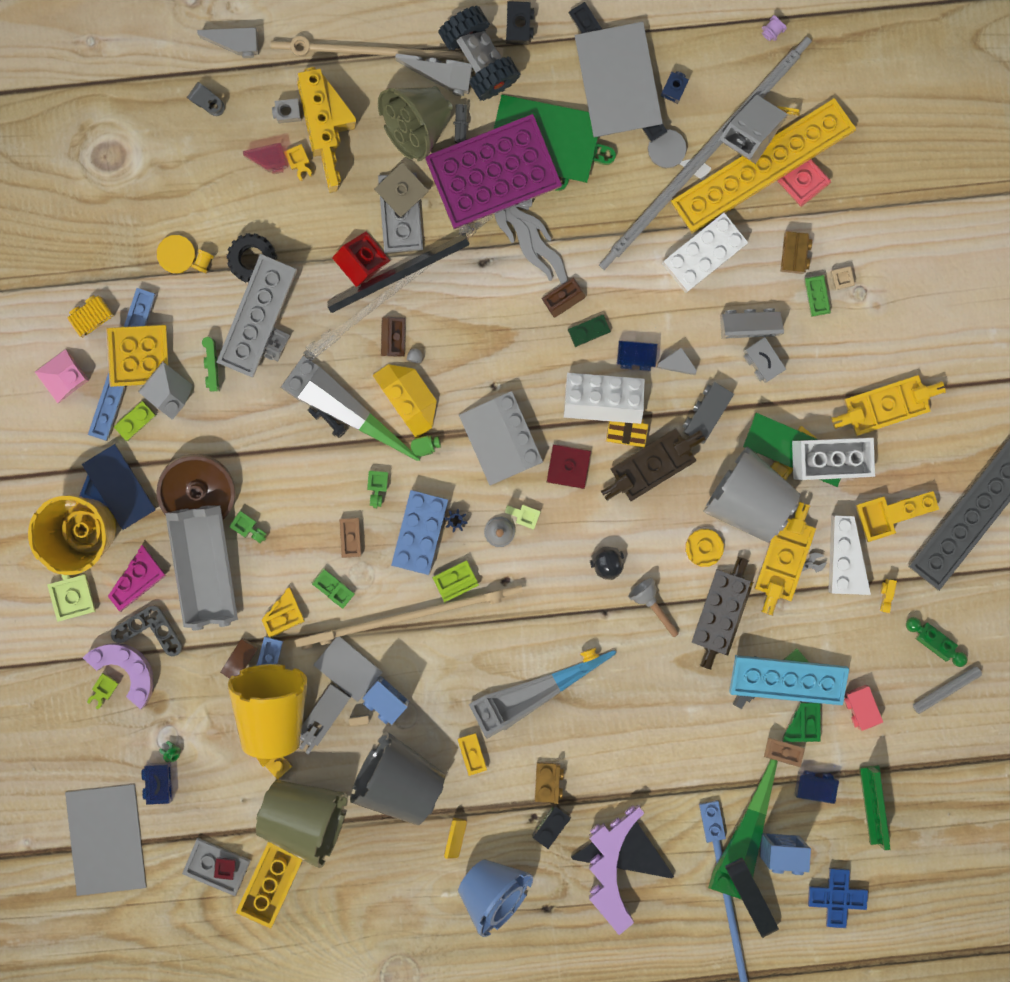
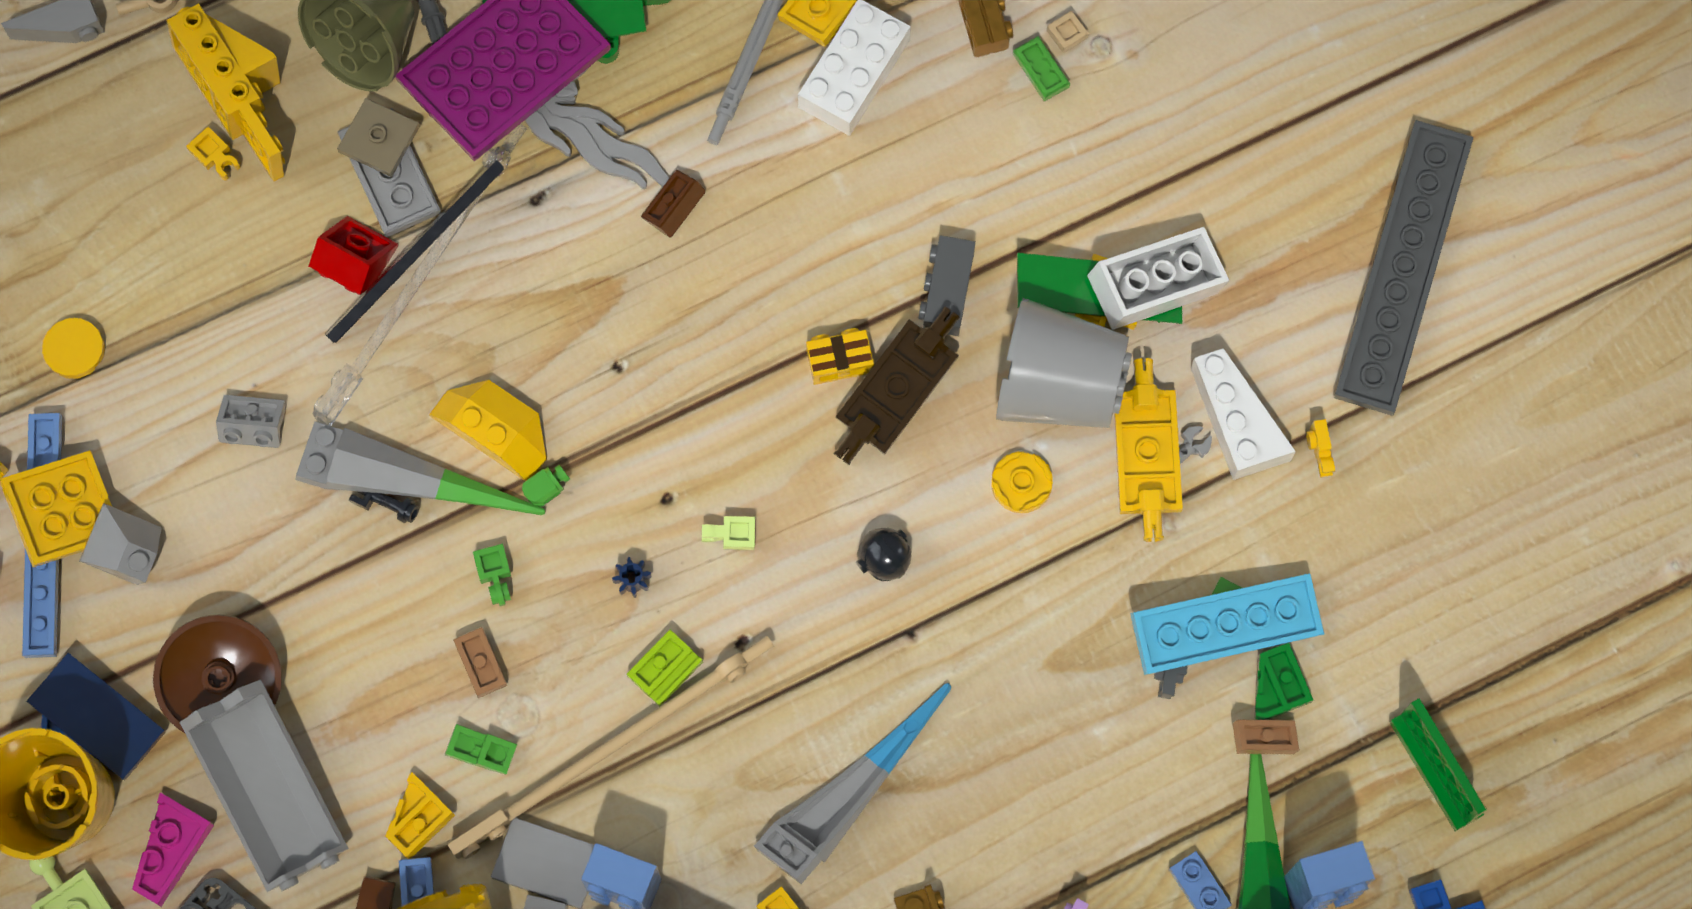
camera: 25 degrees left, 15 degrees down
(134, 421) = (89, 612): lime plate -> none
(202, 261) = (116, 342): yellow bush -> none
(205, 98) = (47, 117): dark grey piece -> none
(210, 363) = (177, 483): bright green plate -> none
(240, 246) = (180, 288): black tyre -> none
(244, 525) = (310, 703): bright green plate -> none
(256, 315) = (222, 382): light grey plate -> none
(268, 157) = (164, 163): clear pink slope -> none
(295, 114) = (172, 78): light grey brick -> none
(393, 336) = (440, 349): reddish brown slope -> none
(414, 356) = (483, 364): light grey hinge -> none
(419, 532) = (583, 614): medium blue brick -> none
(499, 532) = (704, 572): light grey piece -> none
(500, 438) = (656, 433): light grey slope -> none
(568, 466) = (772, 439): dark red plate -> none
(589, 330) = (728, 236): dark green plate -> none
(589, 654) = (910, 702): yellow bush -> none
(604, 398) = (786, 316): white brick -> none
(636, 354) = (811, 242): clear blue brick -> none
(645, 594) = (960, 579): light grey piece -> none
(678, 362) = (876, 232): light grey slope -> none
(722, 612) = (1087, 564): plate -> none
(751, 324) = (961, 140): light grey slope -> none
(764, 360) = (1000, 183): light grey brick -> none
(816, 787) = (1336, 771): clear blue brick -> none
(863, 708) = (1356, 626): coral brick -> none
(878, 517) = (1262, 341): yellow plate -> none
(887, 405) = (1206, 180): yellow plate -> none
(936, 642) = (1423, 489): green plate -> none
(947, 689) = (1470, 555): light grey axle -> none

